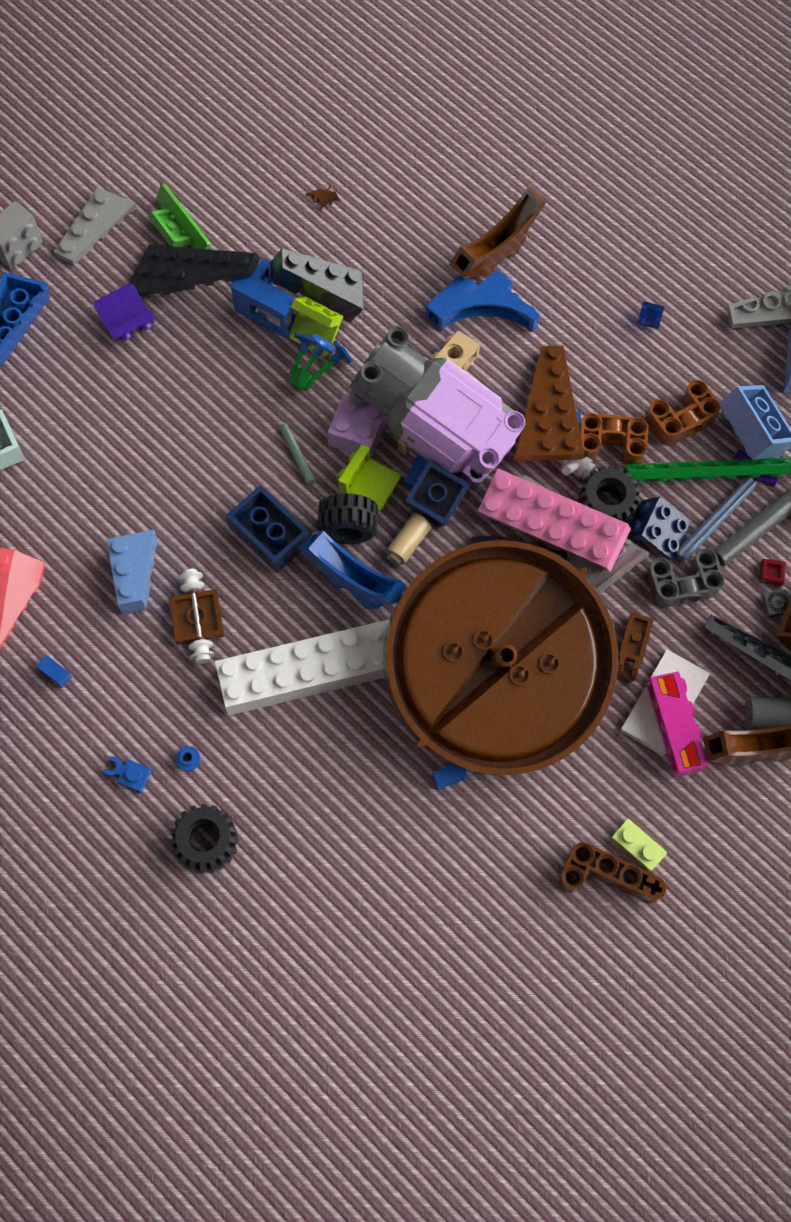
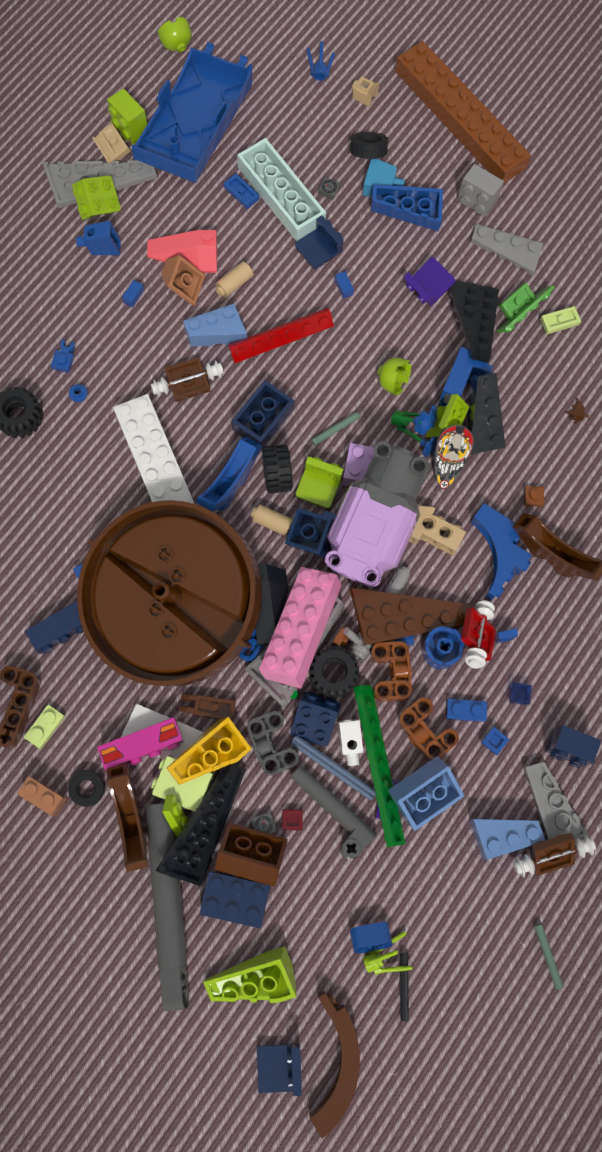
camera: 80 degrees right, 5 degrees up
(37, 429) = (320, 244): none -> dark blue bracket
(47, 603) = (183, 278): none -> nougat slope
(65, 540) = (234, 279): none -> tan brick
(102, 413) = (344, 284): none -> blue piece
(159, 495) = (281, 335): none -> red plate
(204, 189) = (560, 320): none -> yellowish green plate
(242, 374) = (394, 374): none -> lime cylinder
(357, 322) = (451, 454): none -> shield
(420, 259) = (534, 496): none -> dark orange plate
(515, 813) = (55, 629): none -> dark blue brick
(566, 485) = (340, 639): none -> dark orange plate
(583, 315) = (506, 635): none -> blue tile
(583, 338) = (479, 634): none -> plate
(592, 379) = (443, 637): none -> blue brick
(662, 372) = (466, 710): none -> blue plate
(688, 491) = (348, 731): none -> white torso
(690, 638) = (212, 750): none -> yellow wedge
(700, 349) = (495, 741): none -> blue plate
(714, 814) = (77, 779): none -> black tyre
(718, 272) = (573, 746): none -> dark blue brick
(725, 683) = (187, 794): none -> yellowish green brick
(729, 852) = (42, 796): none -> nougat brick
(767, 690) = (174, 815): none -> lime plate

